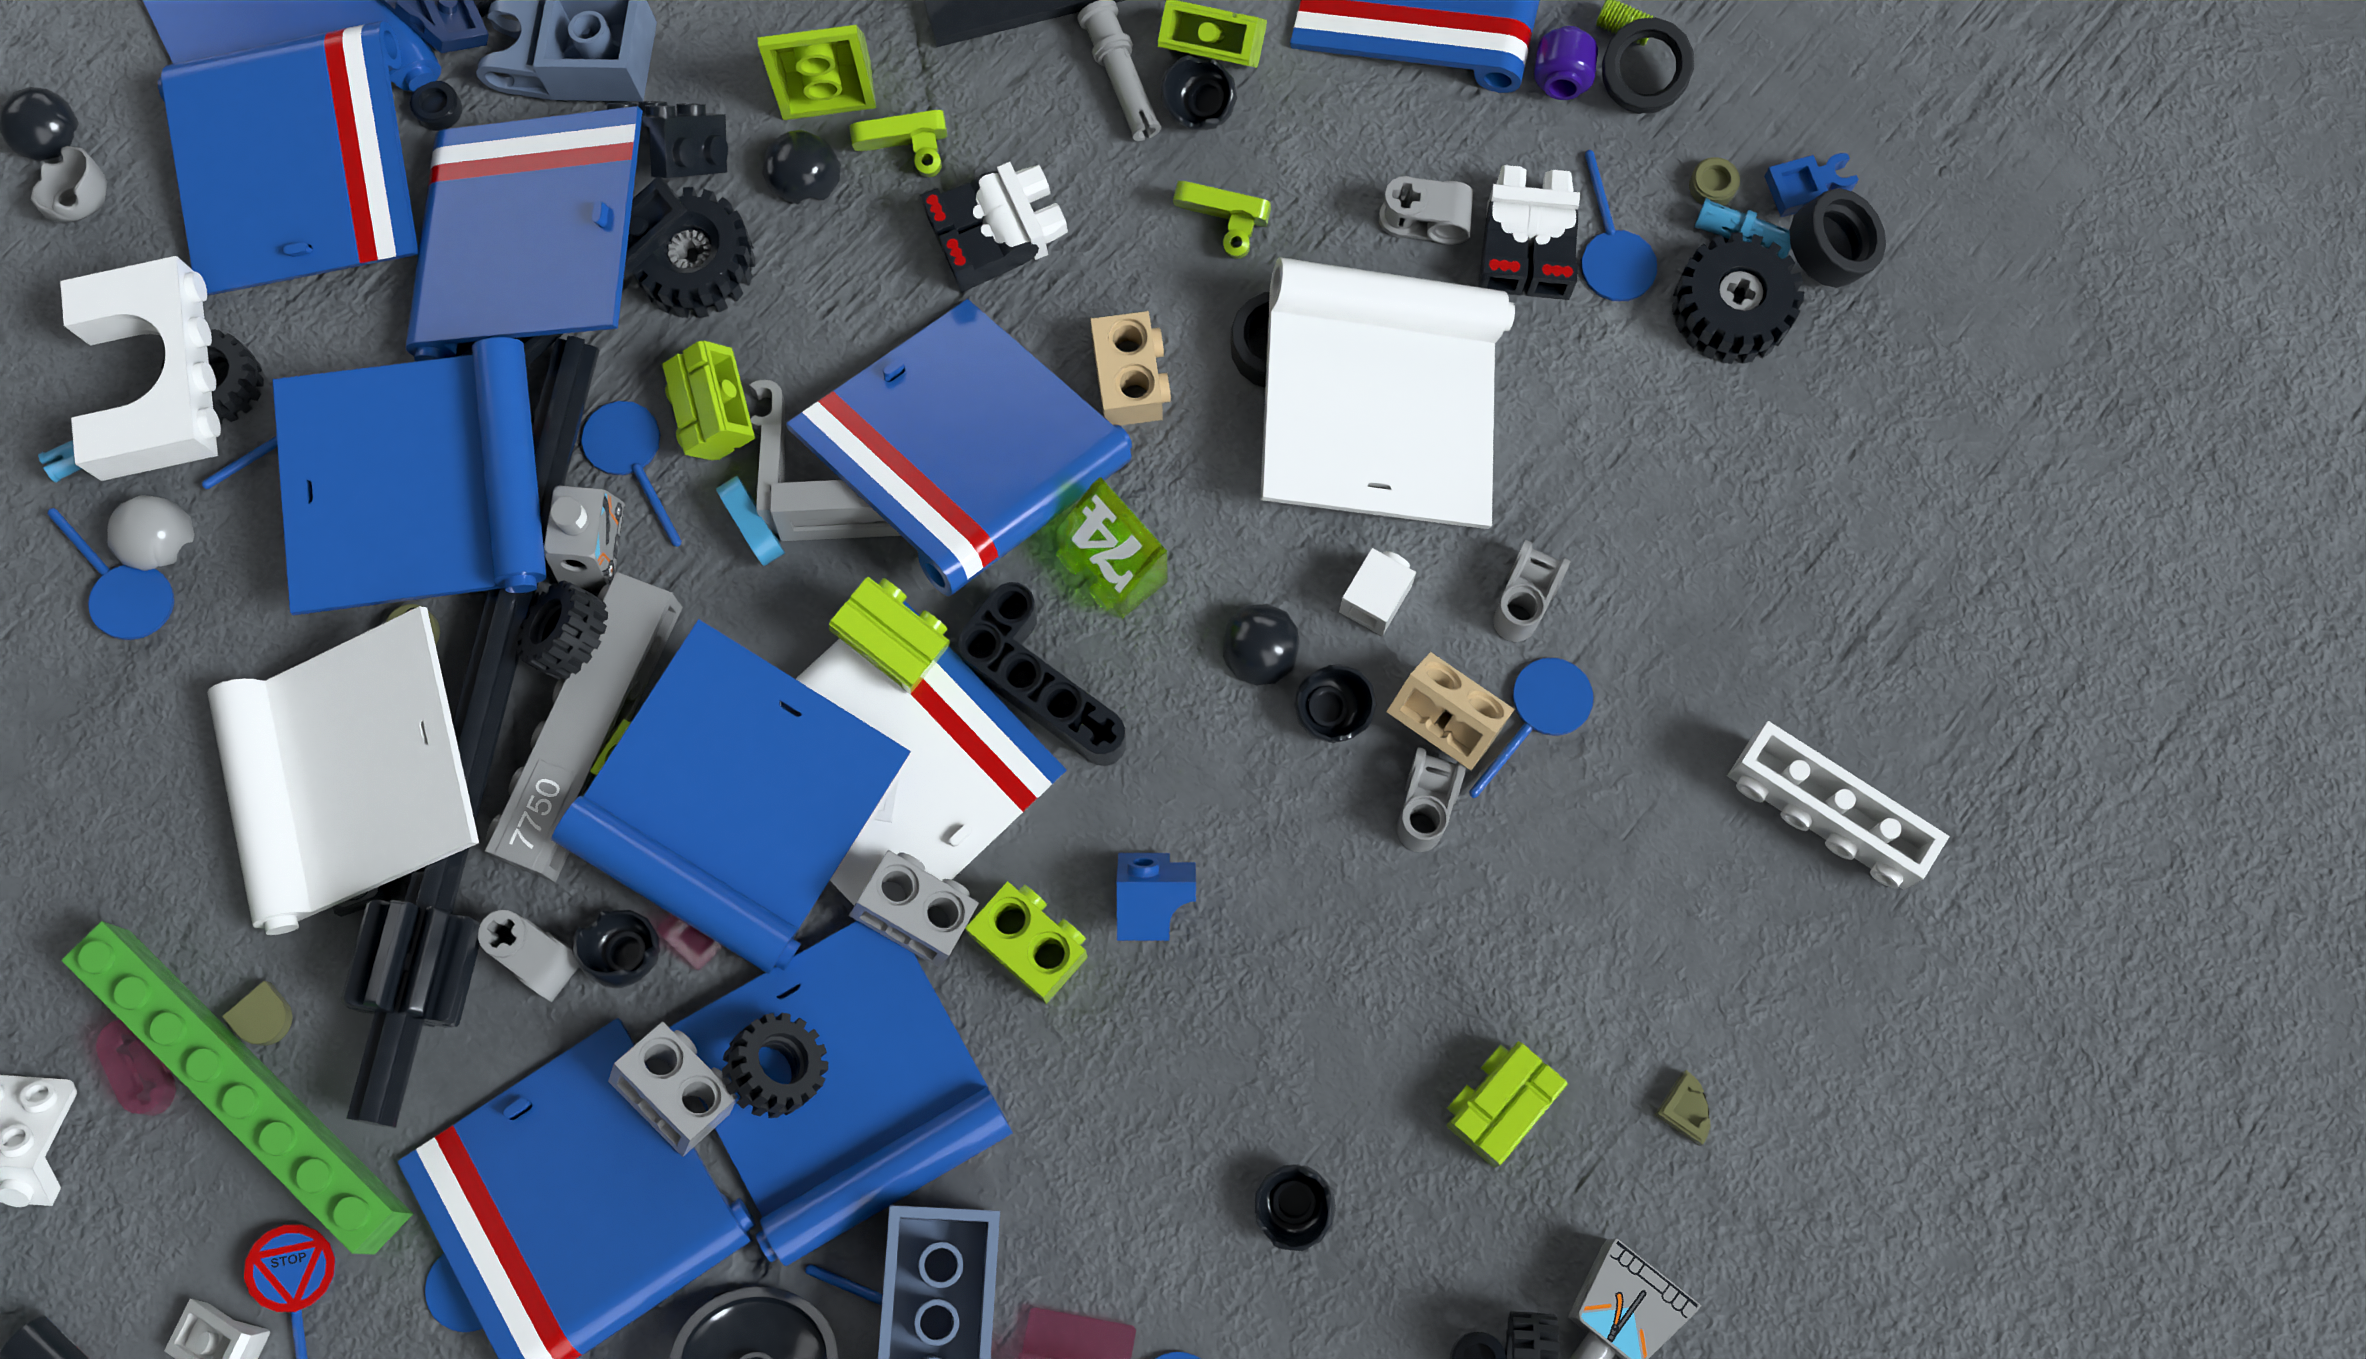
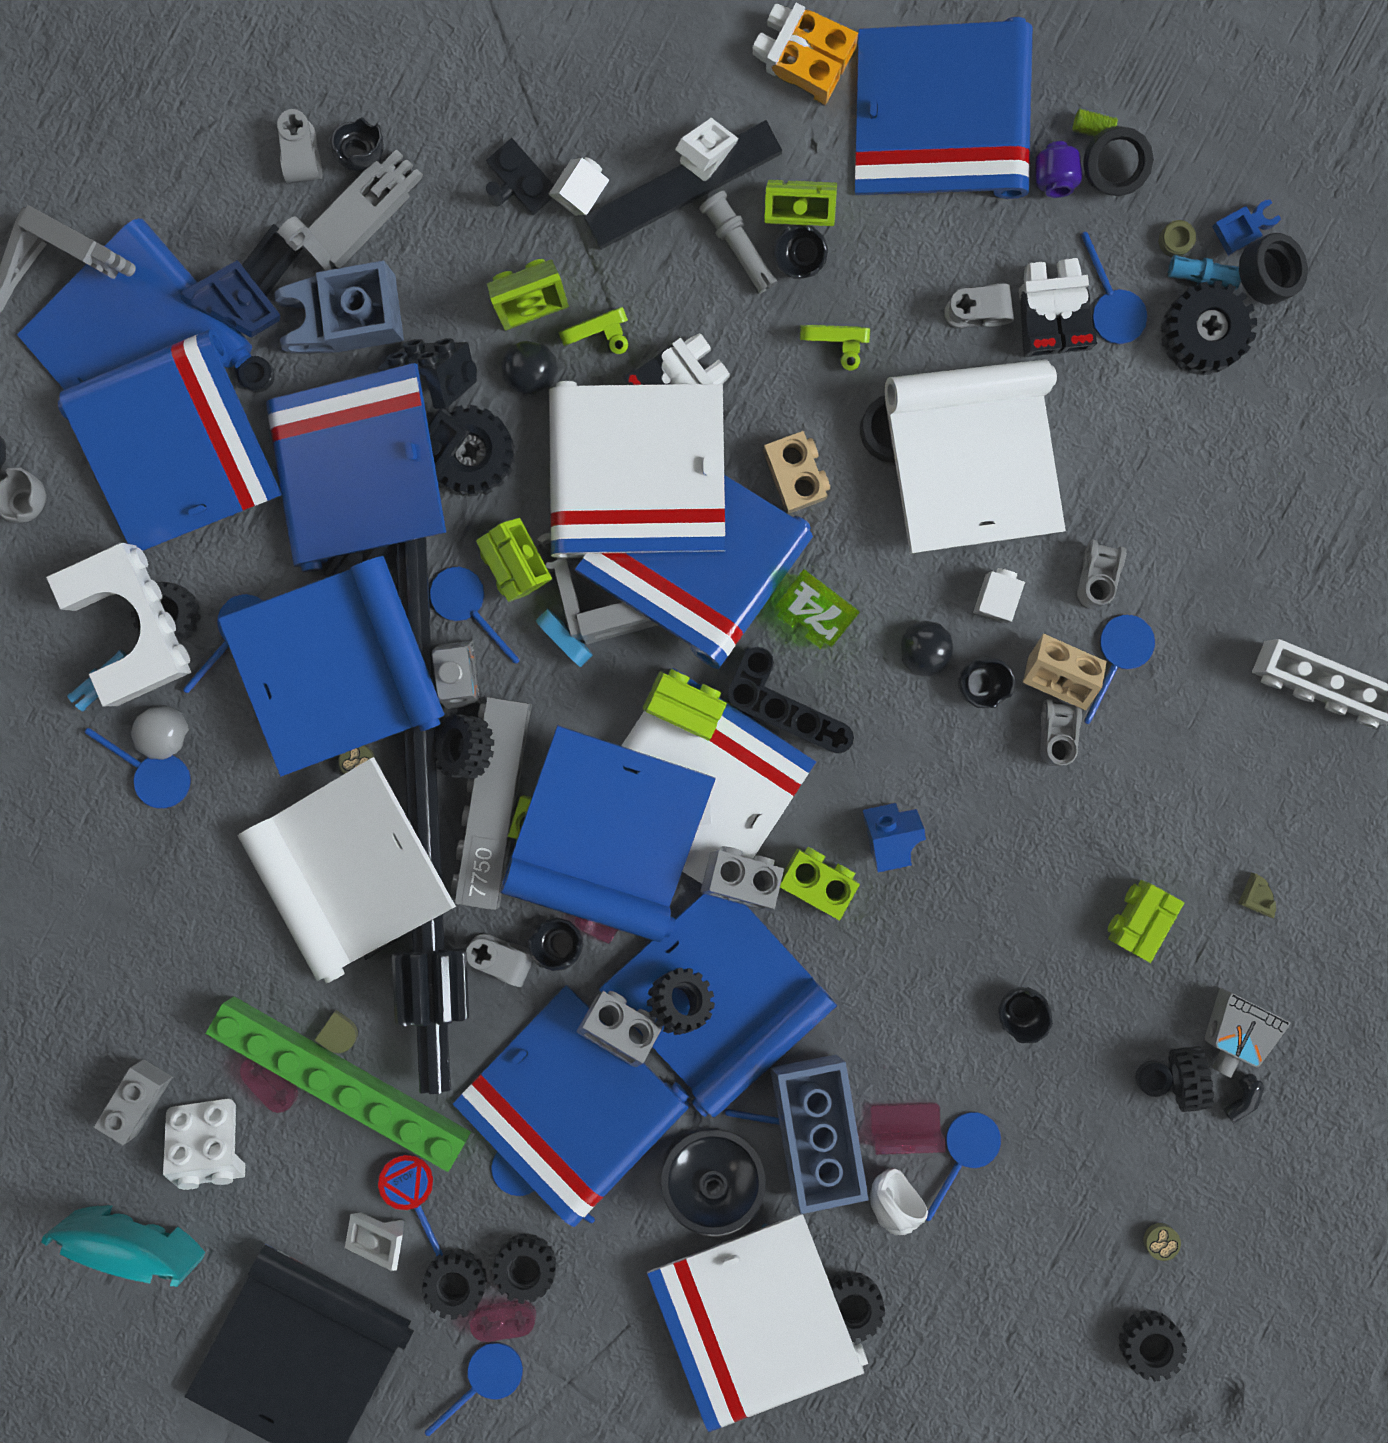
camera: 10 degrees left, 15 degrees up
(904, 313) = (633, 469): none -> white door

